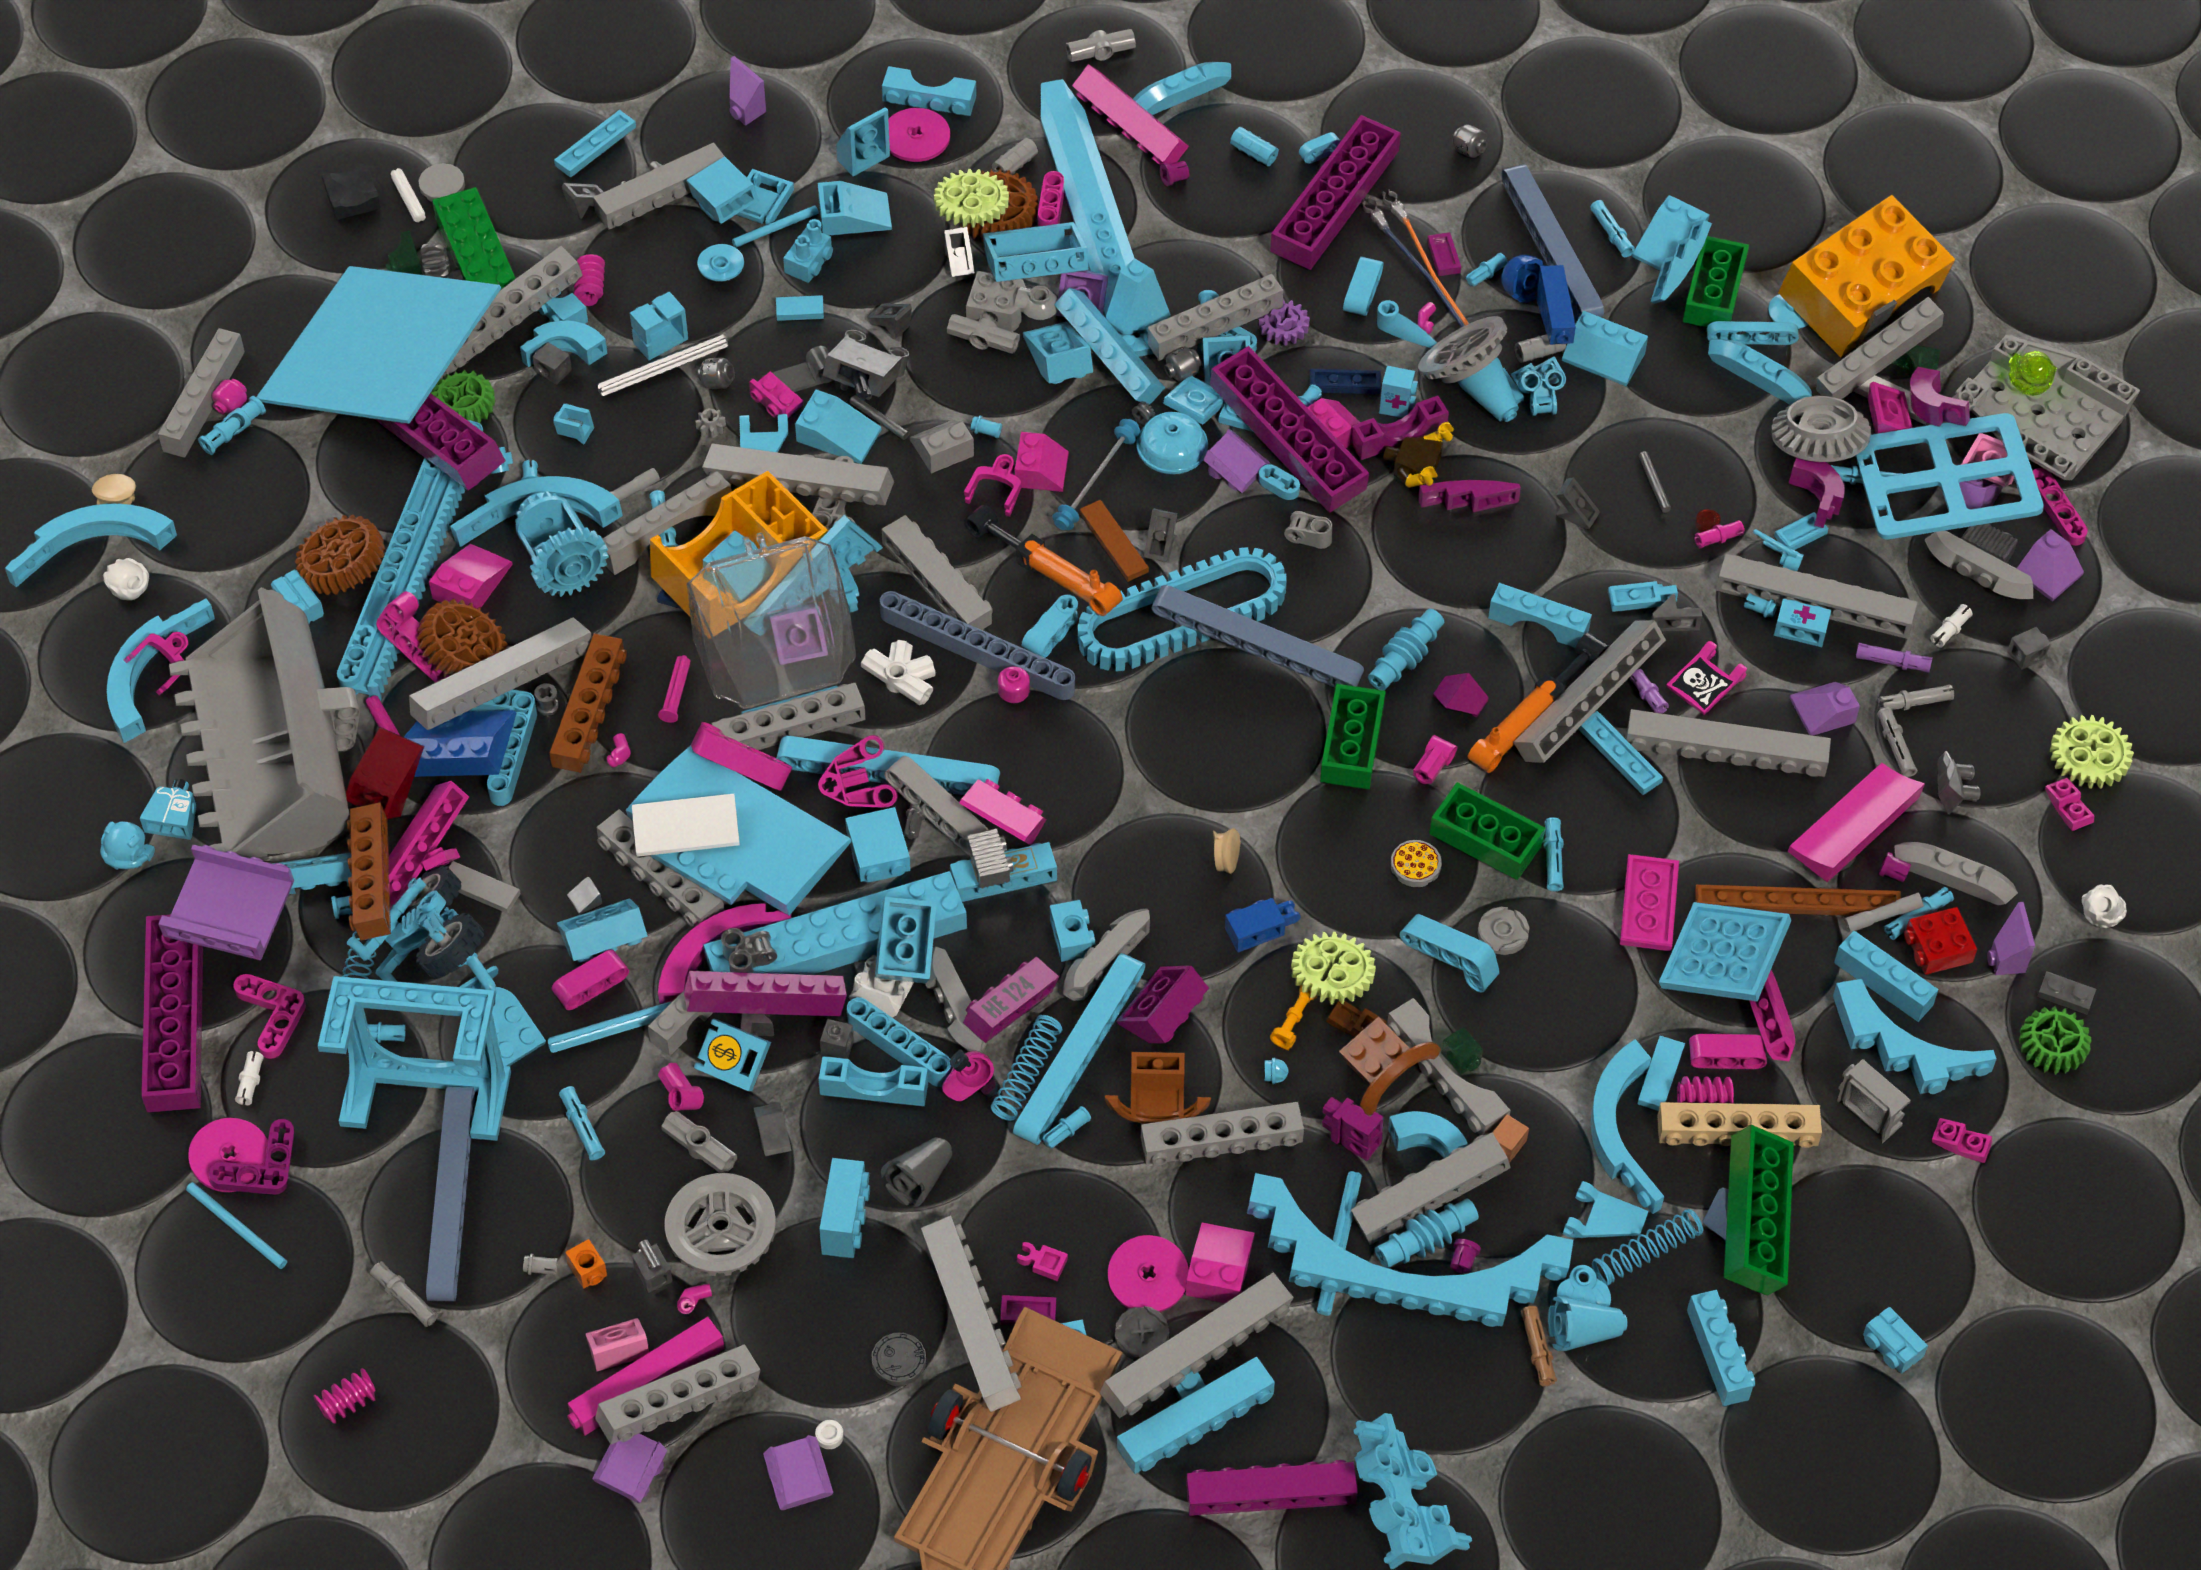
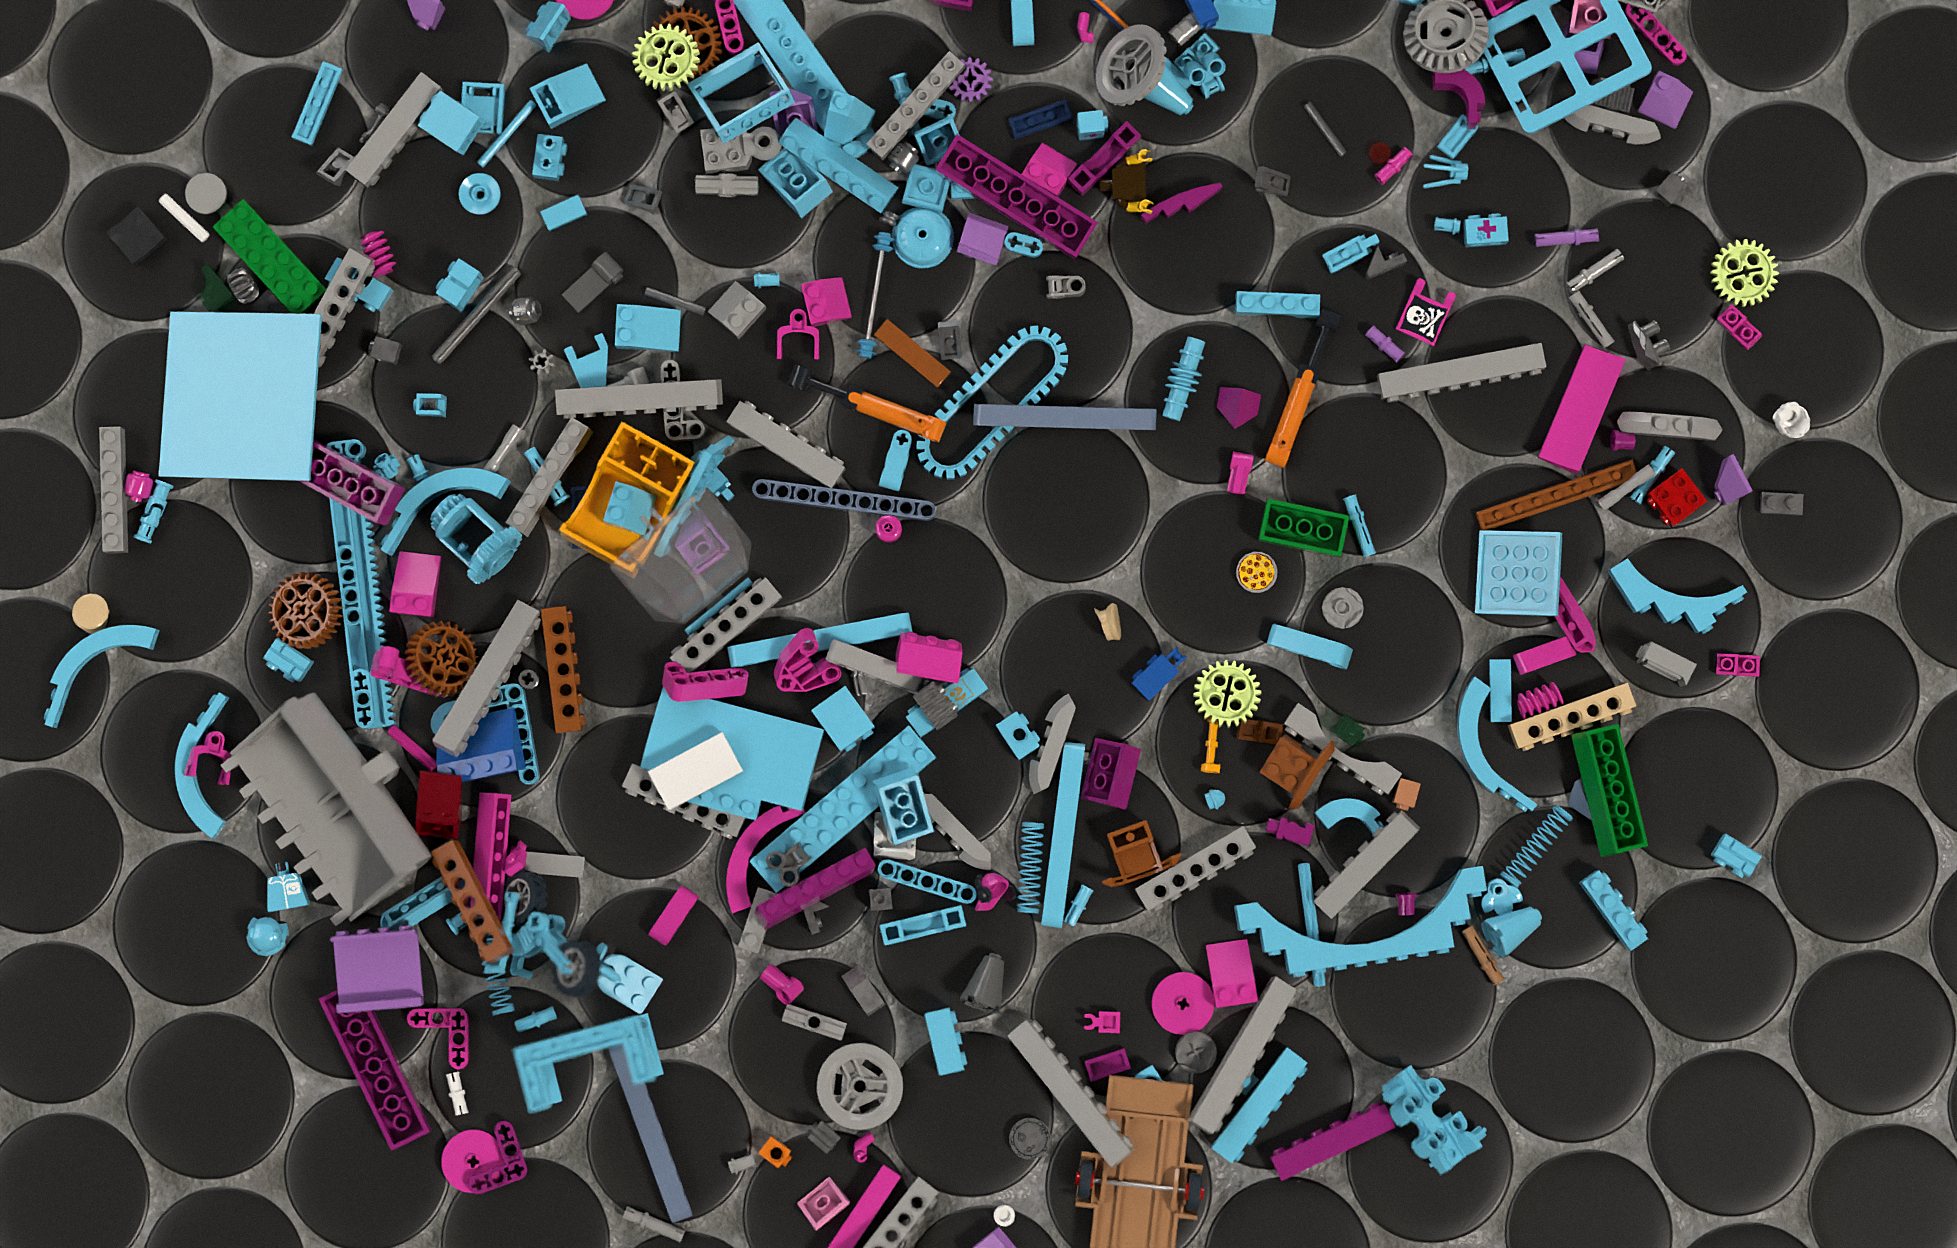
camera: 20 degrees left, 30 degrees up
(126, 579) = (145, 696): white hair -> none
(236, 1225) = (505, 1214): medium azure piece -> none
(461, 392) = (347, 414): bright green gear -> none
(569, 337) = (386, 318): medium azure arch -> none
(577, 1114) = (738, 1055): medium azure pin -> none
(585, 896) = (636, 843): flat silver slope -> none
(602, 930) = (662, 868): medium azure slope -> none
(605, 1028) = (706, 948): medium azure axle -> none
(620, 753) = (608, 703): dark pink arm -> none
(675, 689) = (624, 628): dark pink axle -> none
(726, 1054) = (803, 942): medium azure container -> none
(775, 395) = (583, 314): dark pink bracket -> none
(863, 366) = (647, 267): flat silver piece -> none
(899, 663) = (789, 540): white piece -> none
(1010, 999) = (998, 819): magenta brick -> none
(1311, 395) = (1016, 157): medium azure pin -> none
(1352, 736) = (1170, 478): green brick -> none
(1394, 323) = (1069, 45): medium azure piece -> none
(1425, 1231) = (1374, 897): medium azure piece -> none
(1589, 691) = (1340, 364): light grey brick -> none
(1607, 1217) = (1499, 829): medium azure flag -> none
(1620, 753) = (1380, 411): medium azure plate -> none
(1649, 902) = (1445, 542): dark pink plate -> none
(1826, 707) = (1525, 305): medium lavender slope -> none
(1847, 602) = (1489, 200): light grey brick -> none
(1886, 976) = (1643, 544): medium azure brick -> none
(1951, 625) = (1603, 188): white pin -> none
(2062, 1035) = (1802, 548): bright green gear -> none

